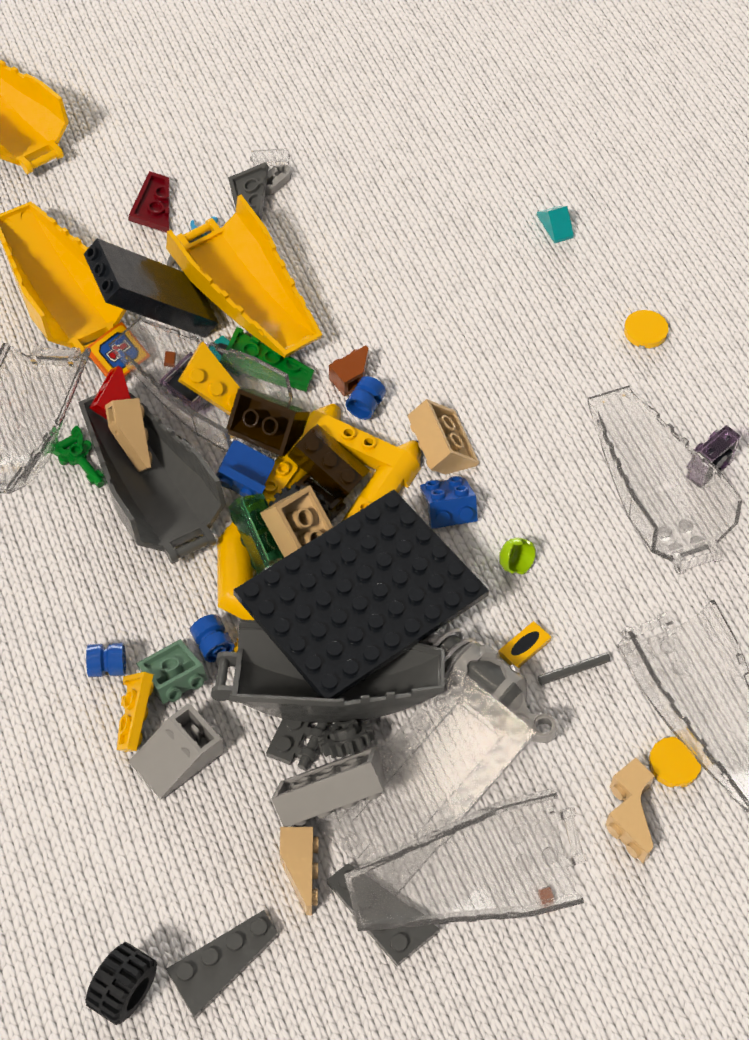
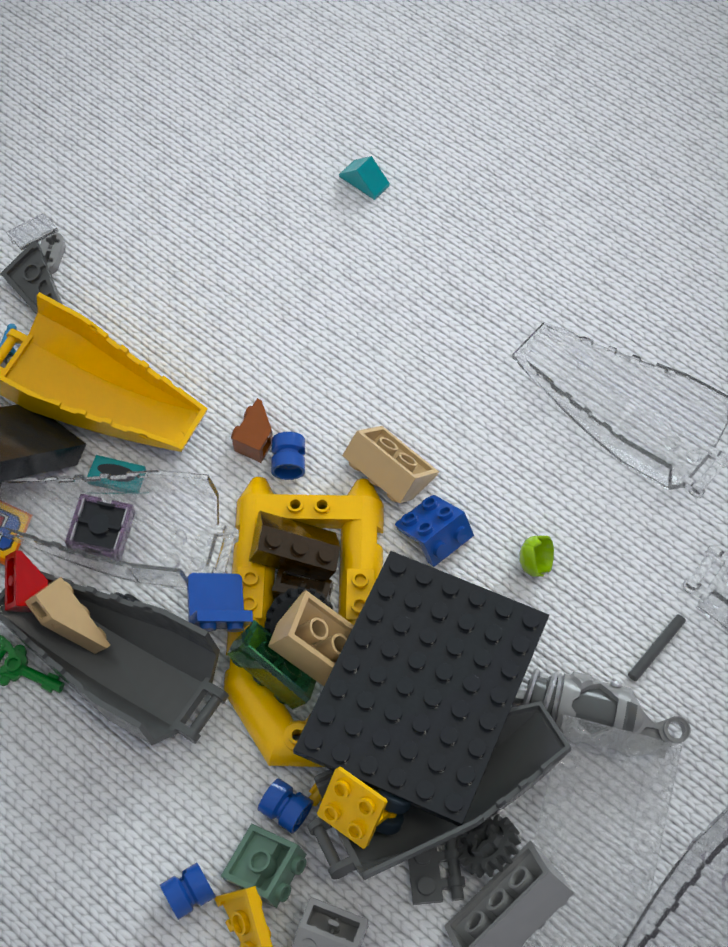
camera: 25 degrees left, 5 degrees up
(170, 358) = (57, 509): dark orange piece -> none
(210, 379) = (125, 517): yellow wing -> none
(257, 655) = (360, 810): none -> yellow plate
(266, 421) = (206, 534): dark brown slope -> none
(299, 374) = (145, 458): green wing -> none
(524, 645) = (596, 647): yellow tile -> none
(646, 328) = (516, 252): yellow tile -> none
(720, 447) = (664, 345): clear purple piece -> none

